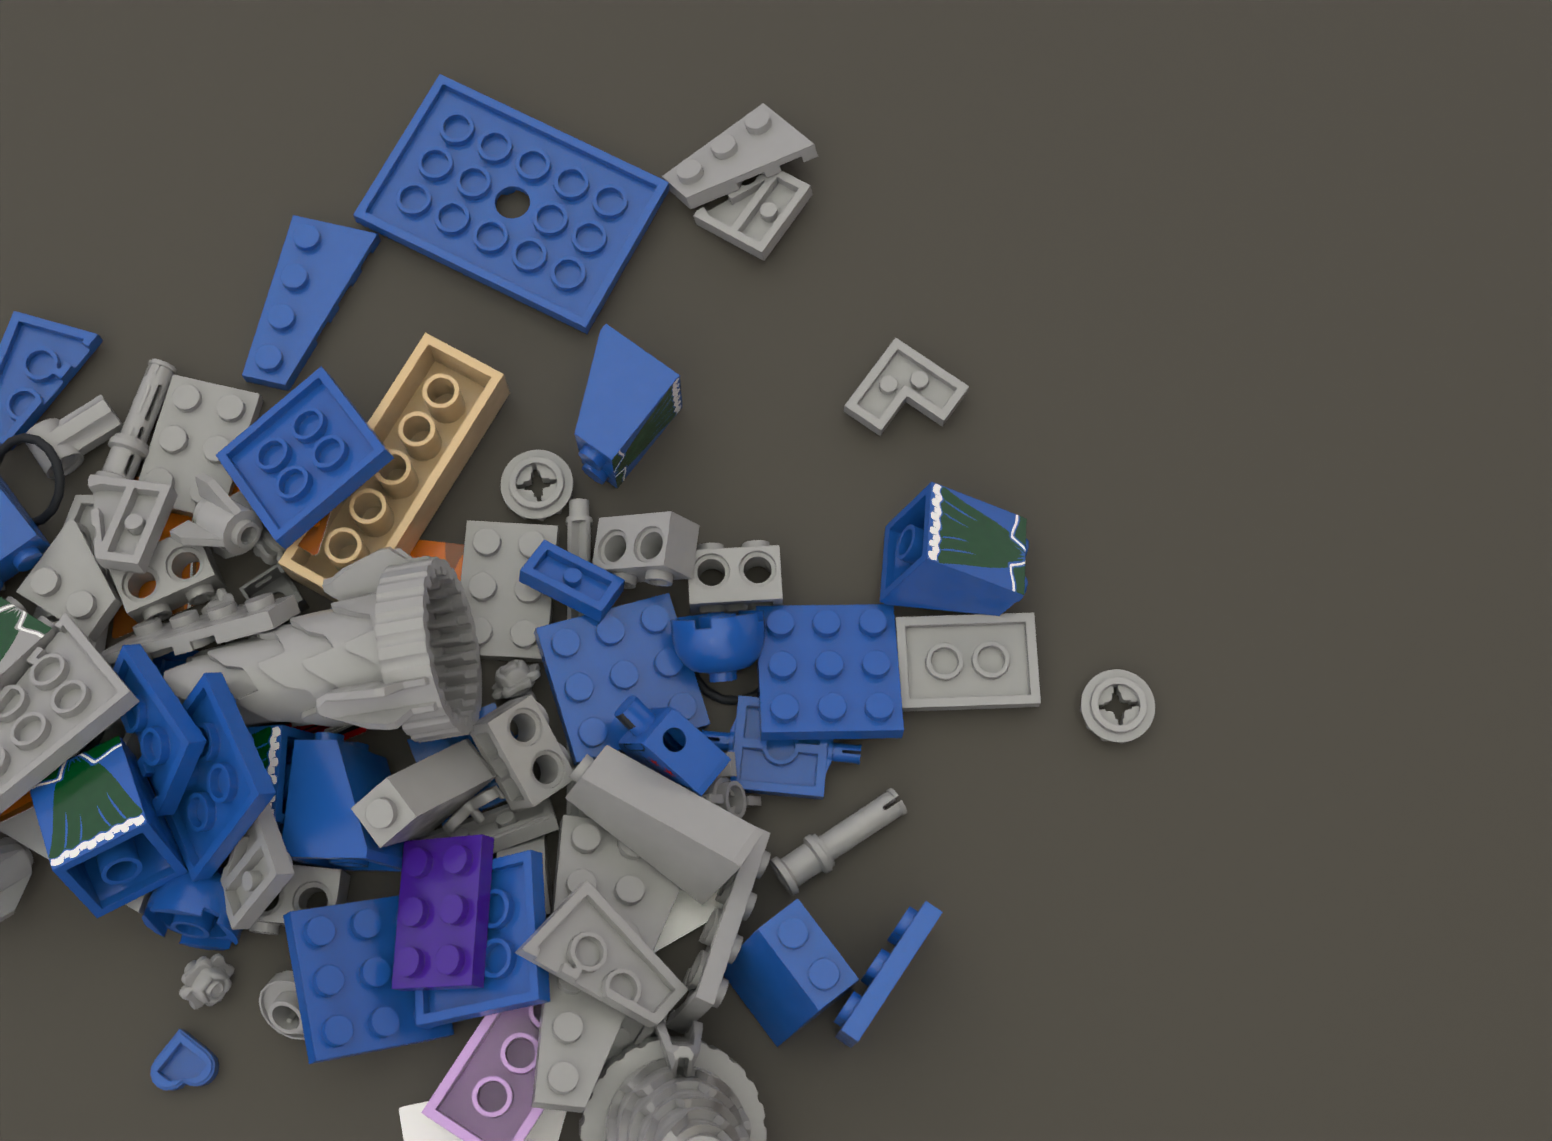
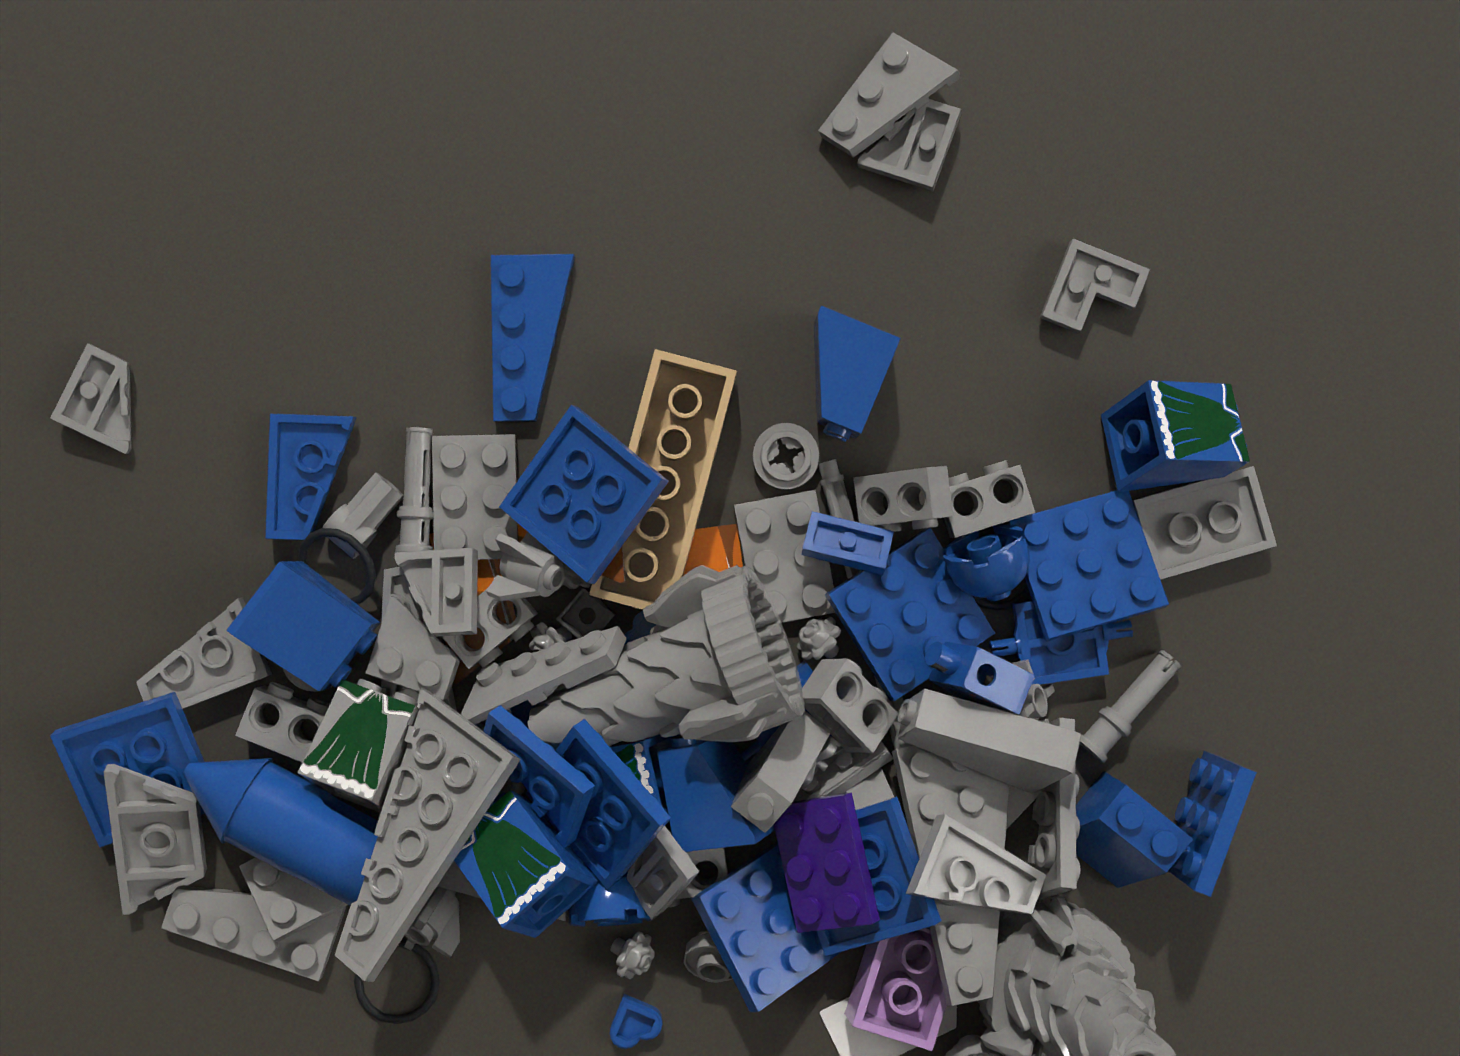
camera: 15 degrees left, 15 degrees up
(469, 151) = (622, 177): blue plate -> none
(1130, 690) = (1357, 538): light grey gear -> none

